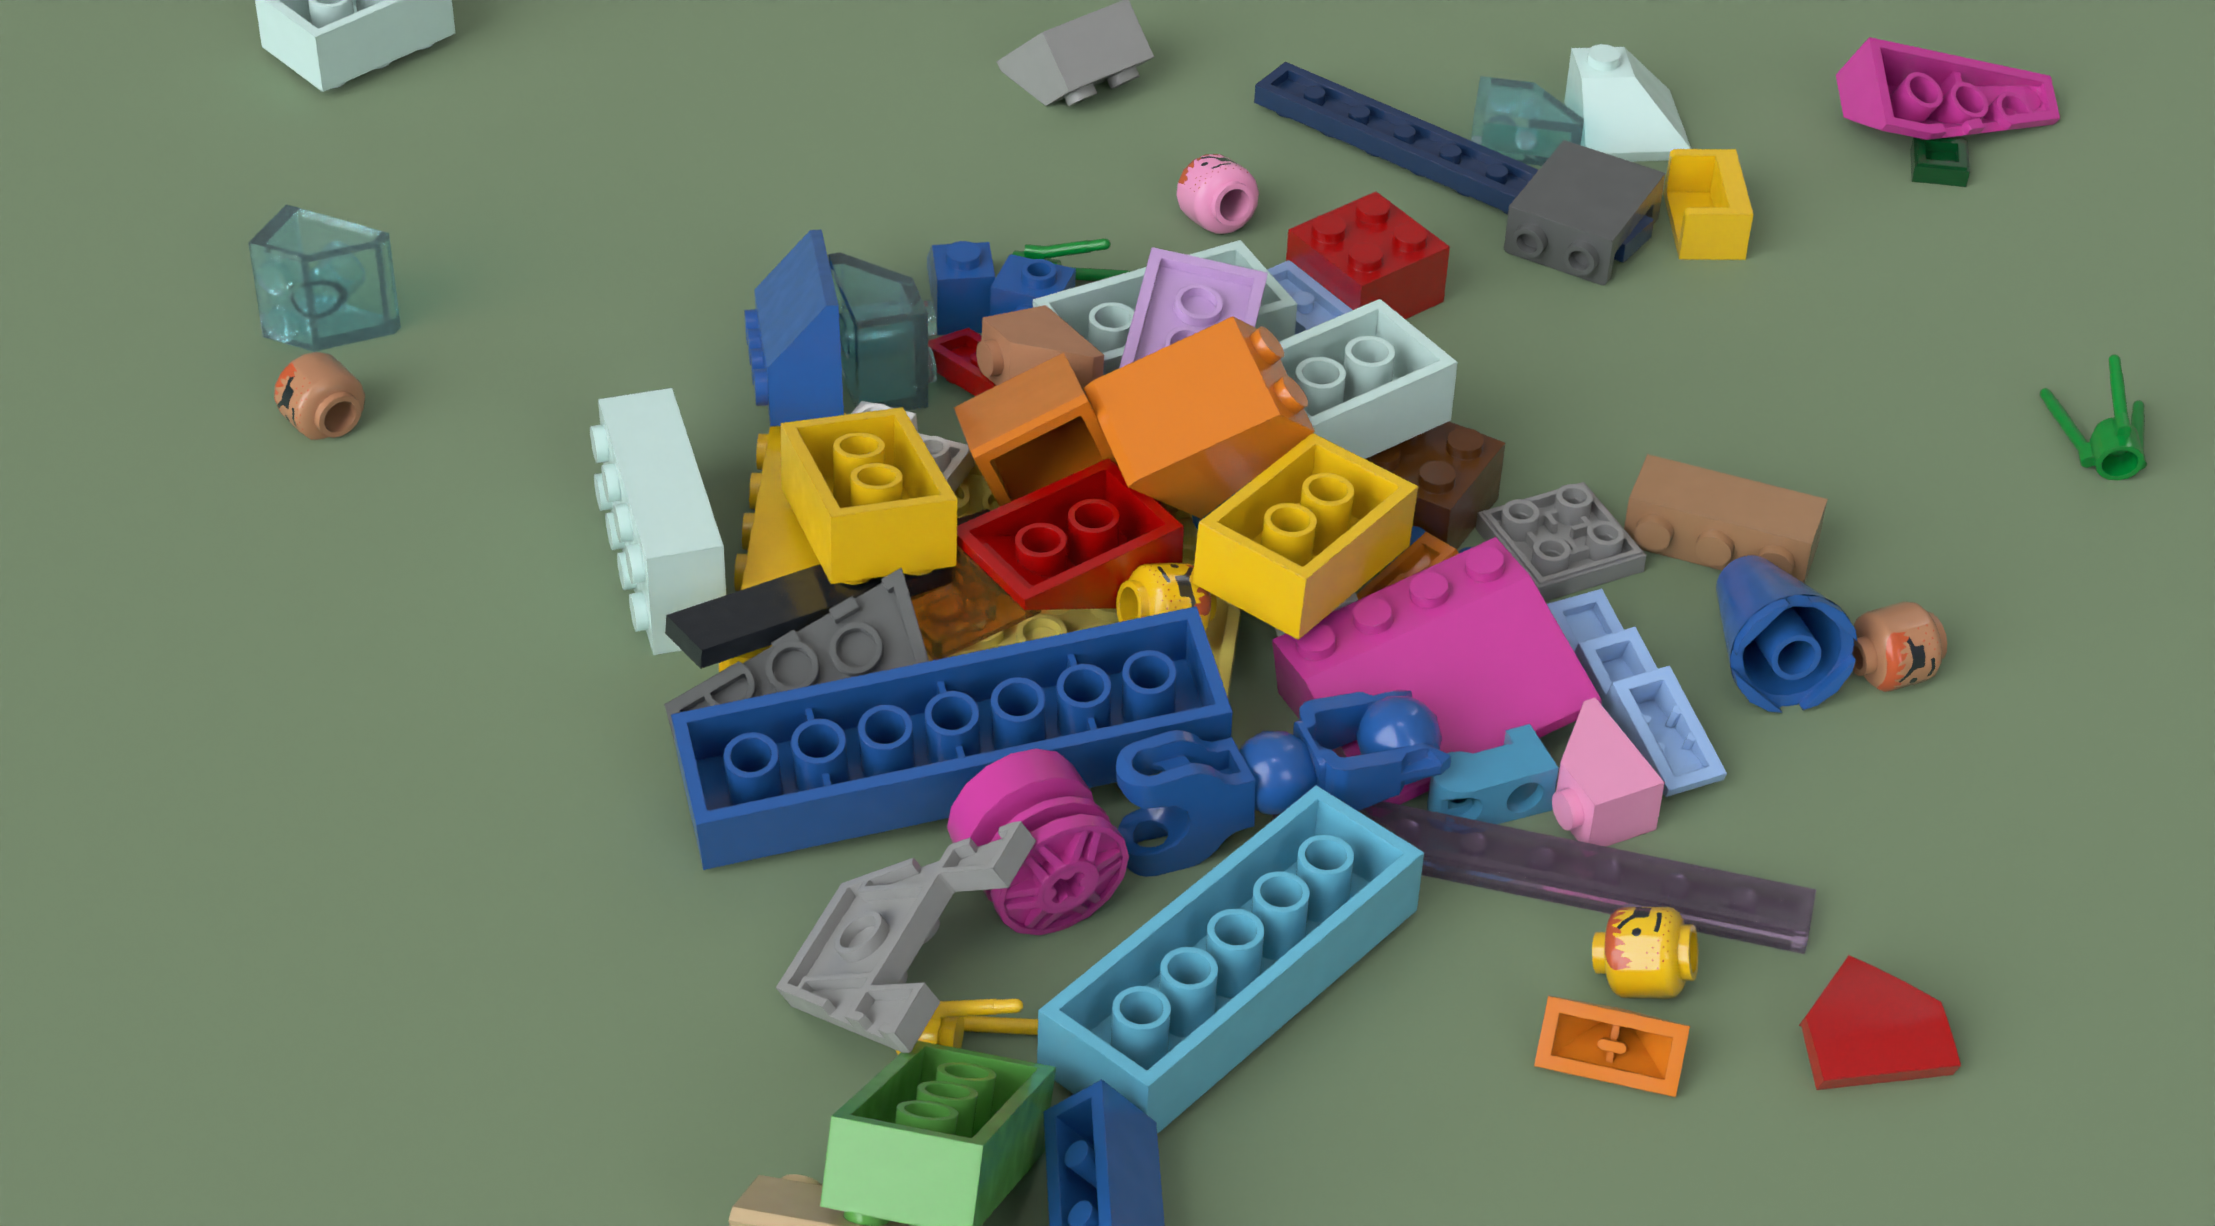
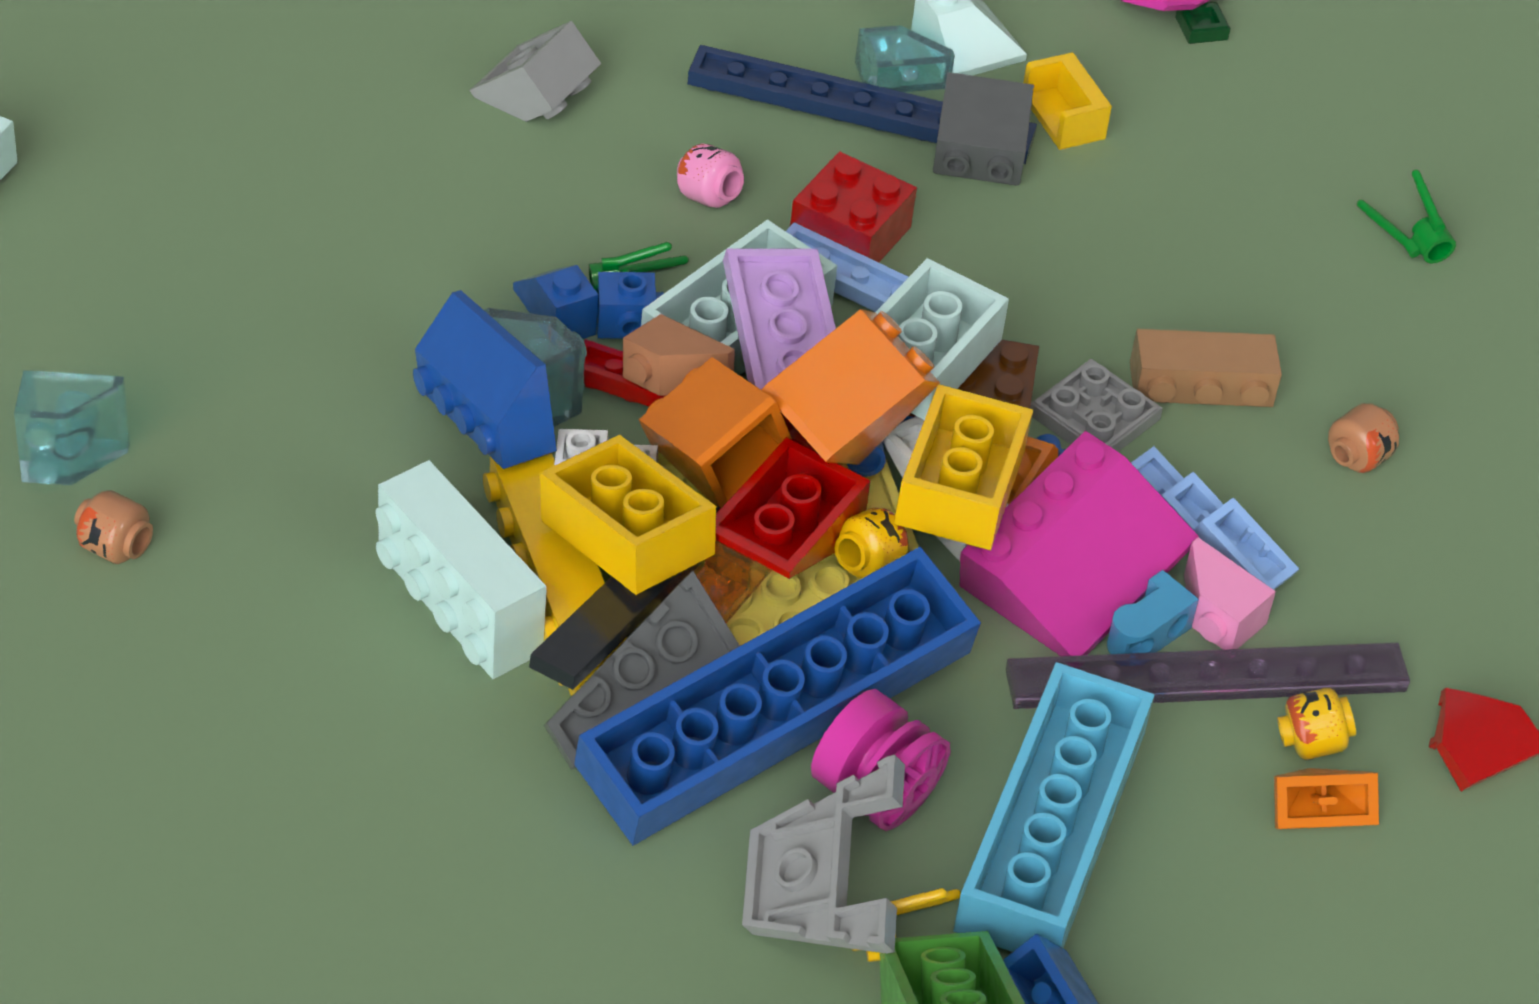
camera: 25 degrees left, 5 degrees up
(1215, 787) = (1016, 657): blue piece -> none
(1782, 636) = (1289, 449): blue cone -> none

